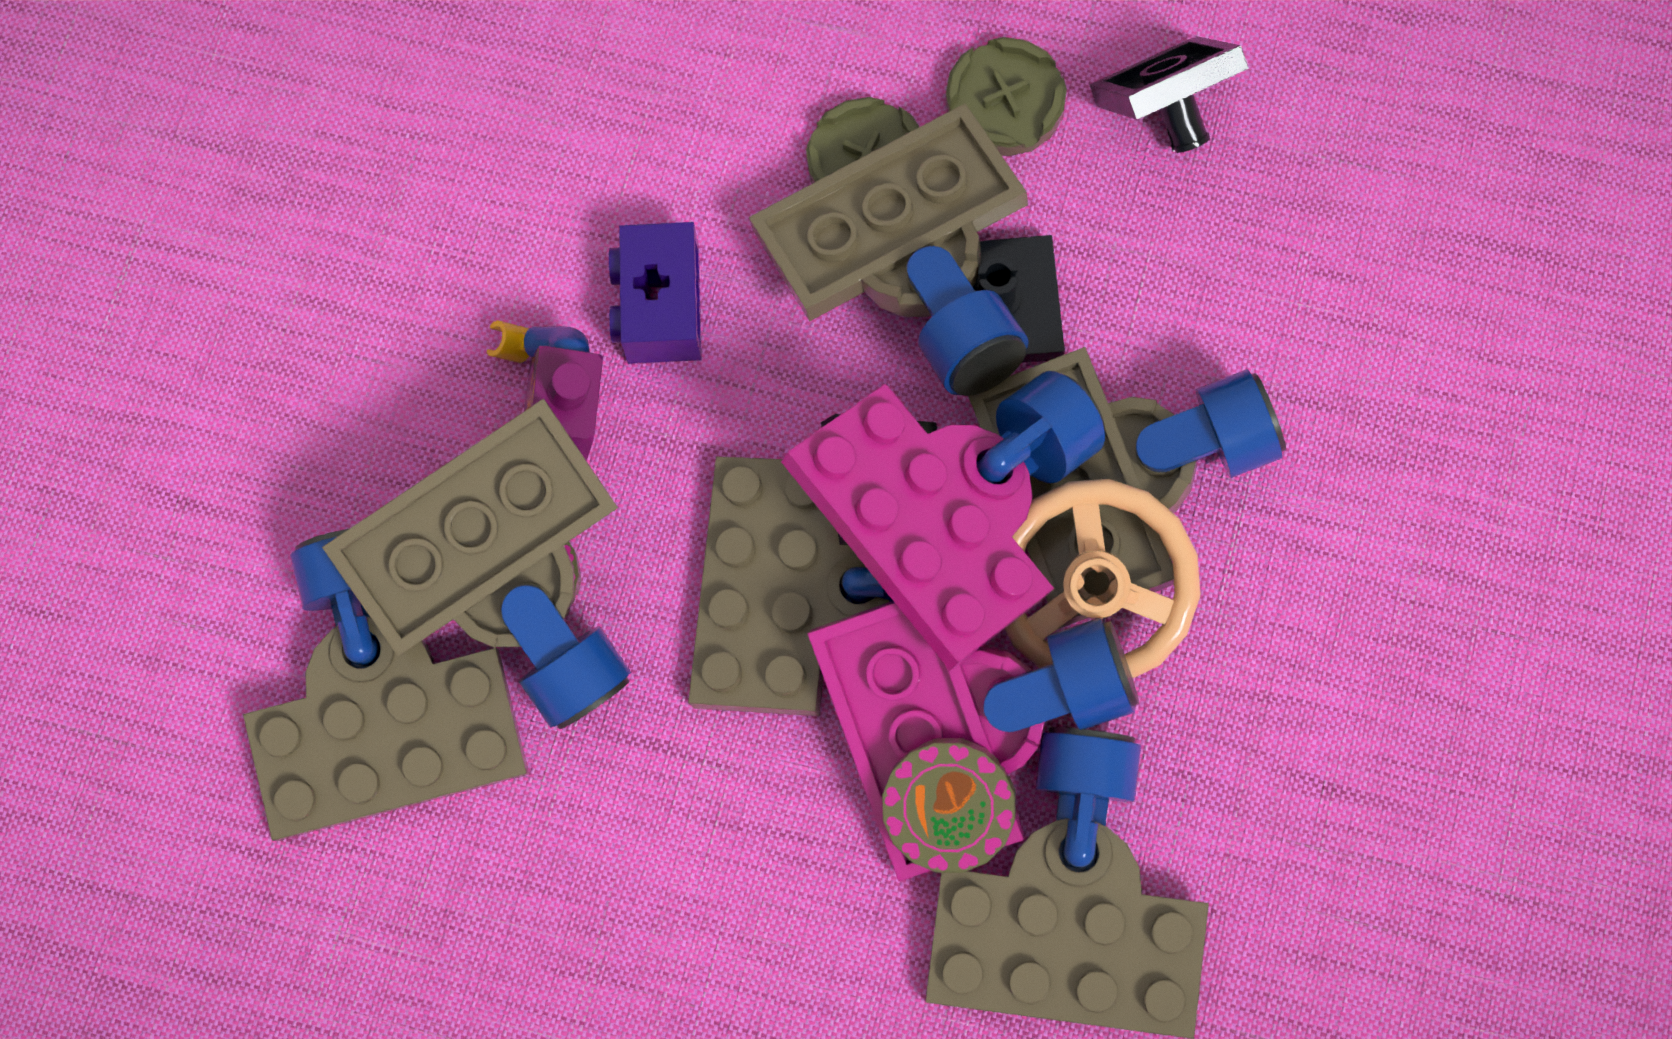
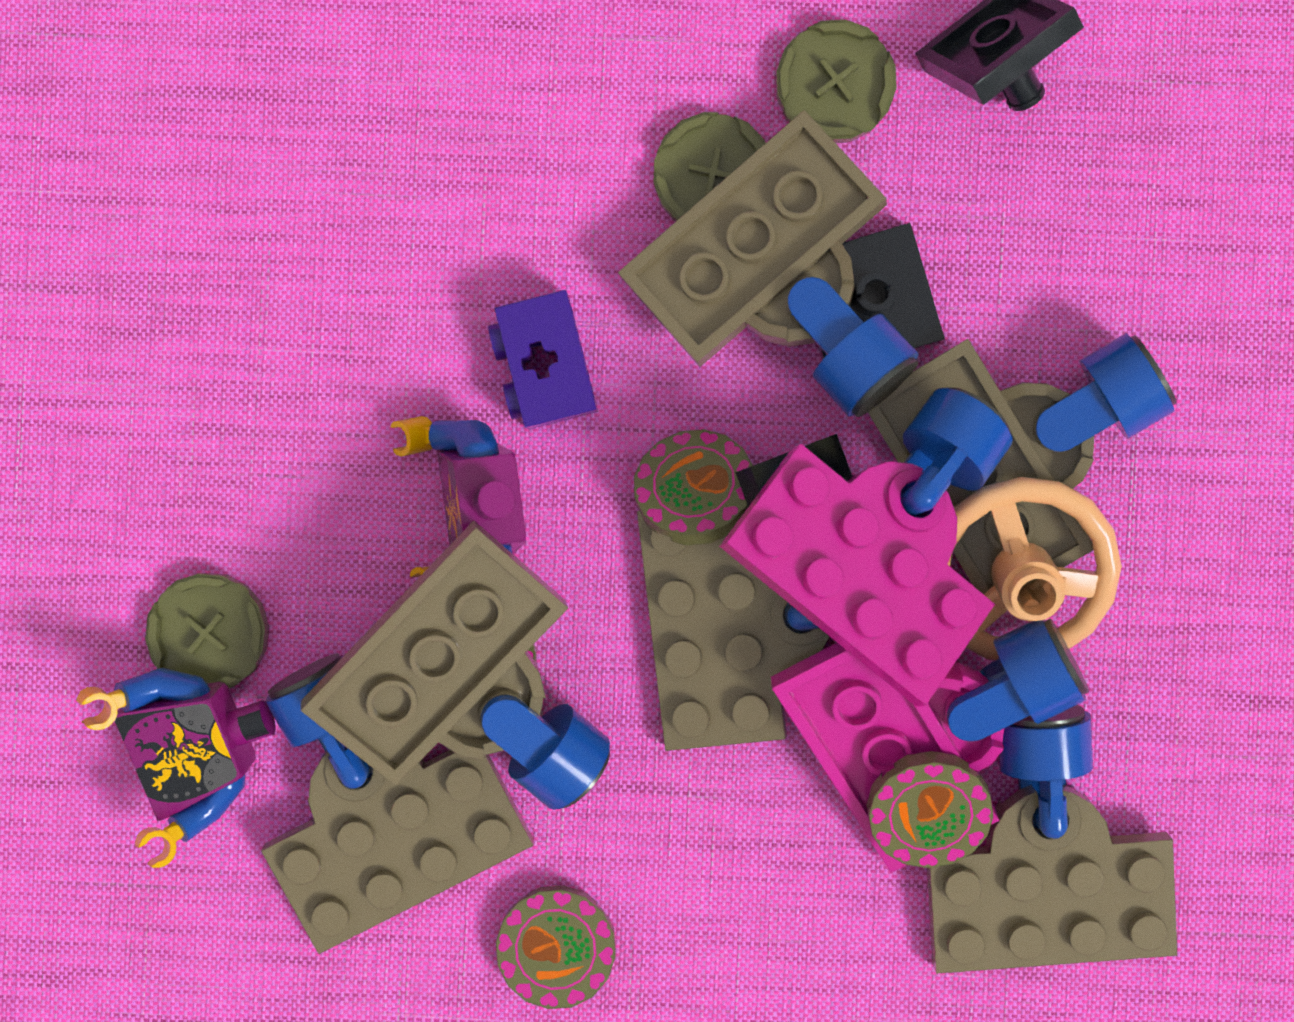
camera: 20 degrees left, 15 degrees up
(196, 588) = (184, 746): none -> torso
(252, 493) = (208, 629): none -> olive tile
(523, 890) = (556, 947): none -> olive tile
(762, 429) = (691, 486): none -> olive tile

